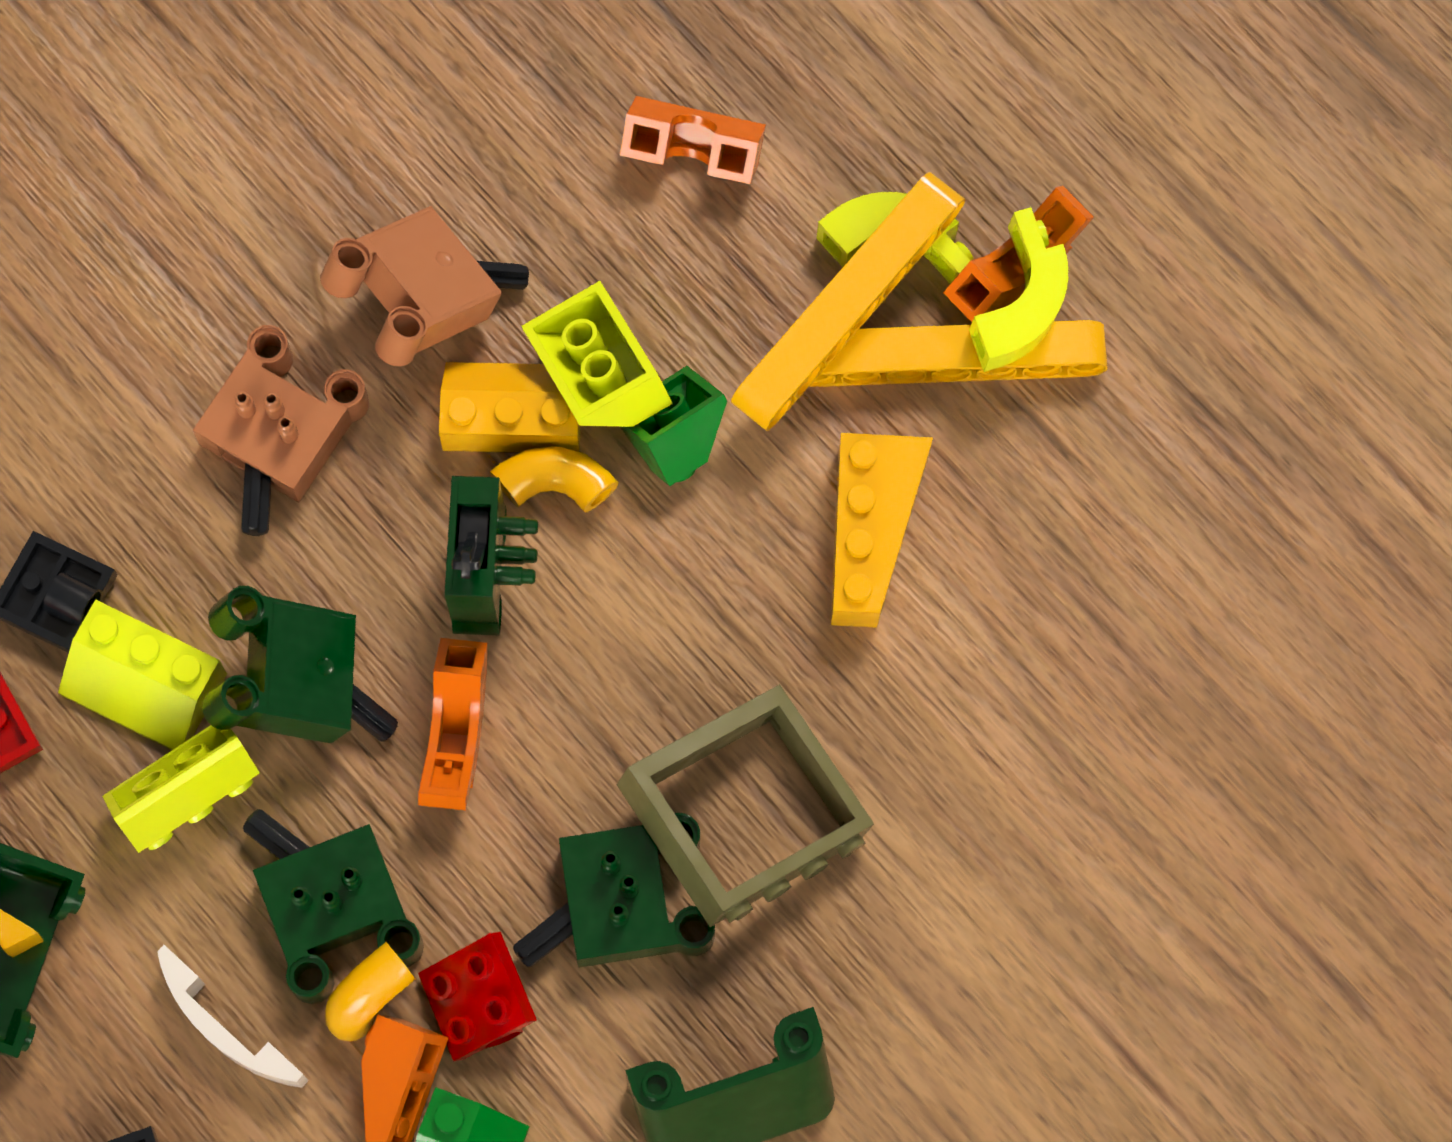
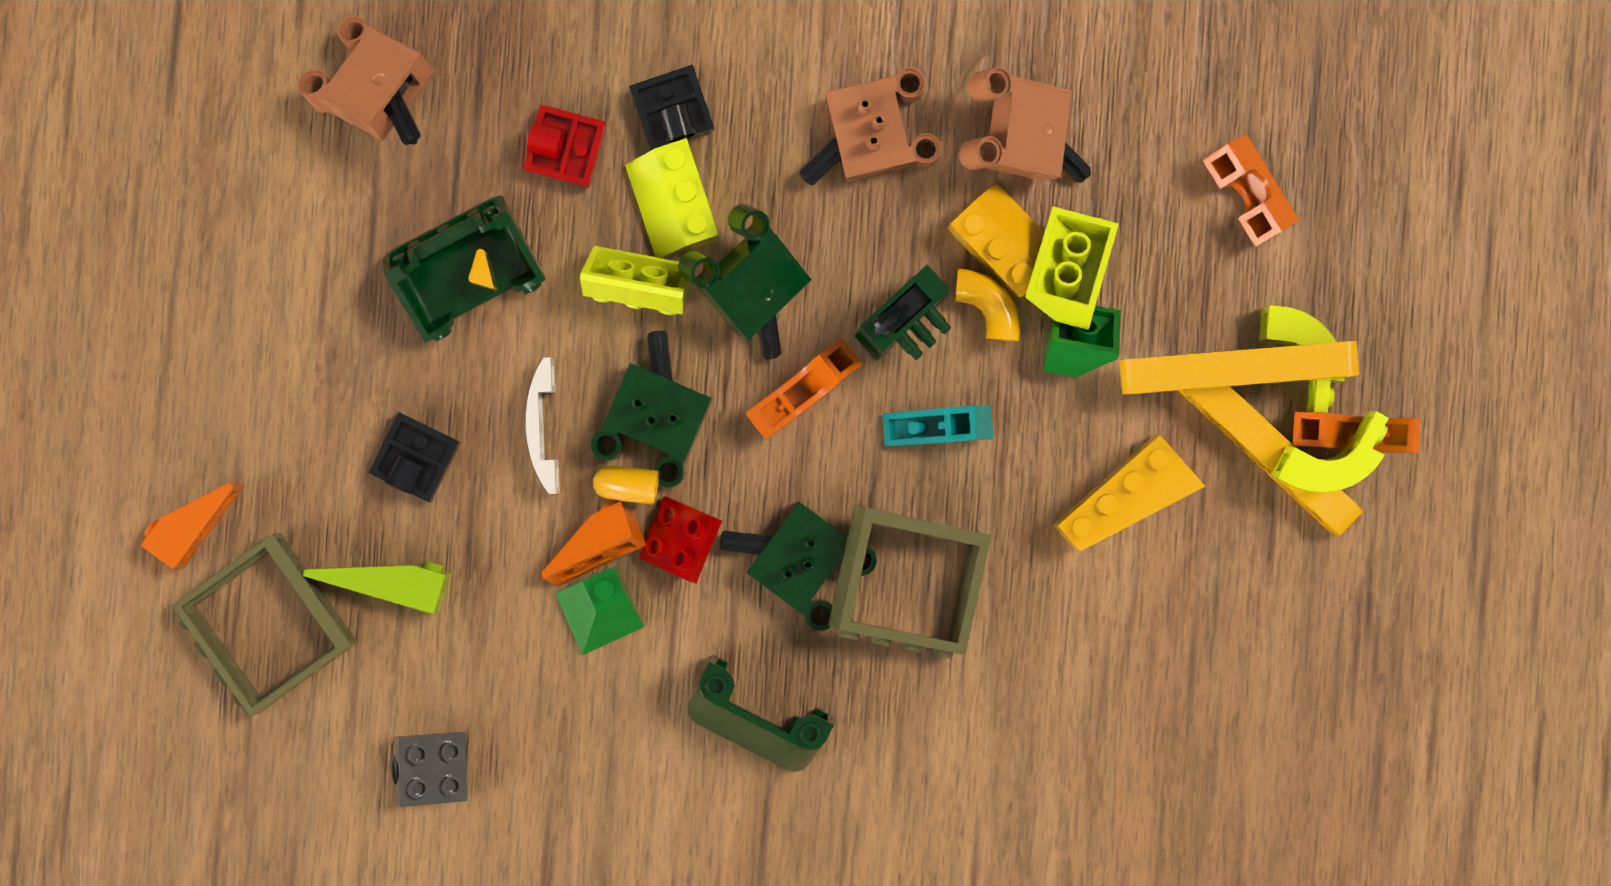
camera: 50 degrees right, 15 degrees up
(622, 636) = (938, 426): none -> teal slope

